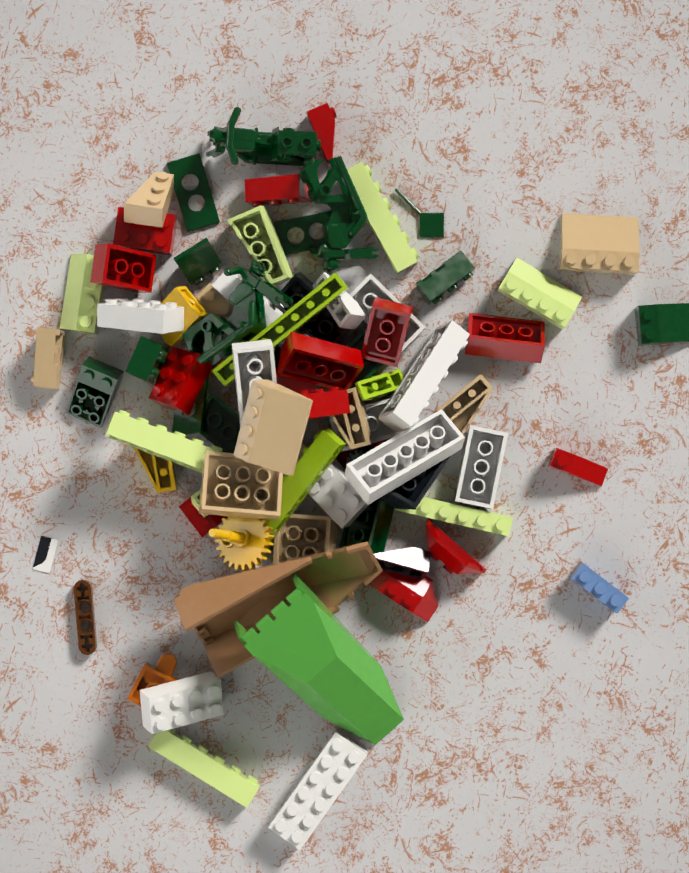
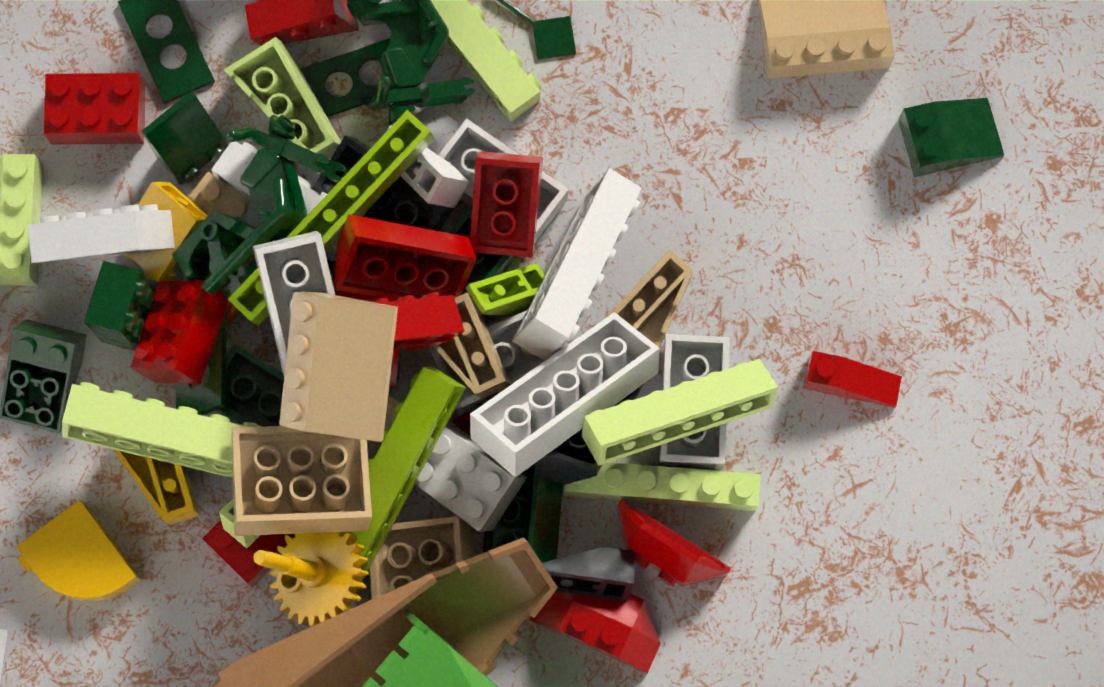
camera: 15 degrees left, 10 degrees down
(104, 504) = (77, 557): none -> yellow brick
(123, 268) = (64, 167): red brick -> none
(150, 201) = (96, 55): tan wedge -> none
(445, 278) = (587, 113): dark green wedge -> none
(470, 476) = (678, 411): none -> yellowish green brick
(505, 338) = (700, 193): red slope -> none
(539, 293) = (741, 118): yellowish green slope -> none
(598, 587) = (921, 571): medium blue brick -> none

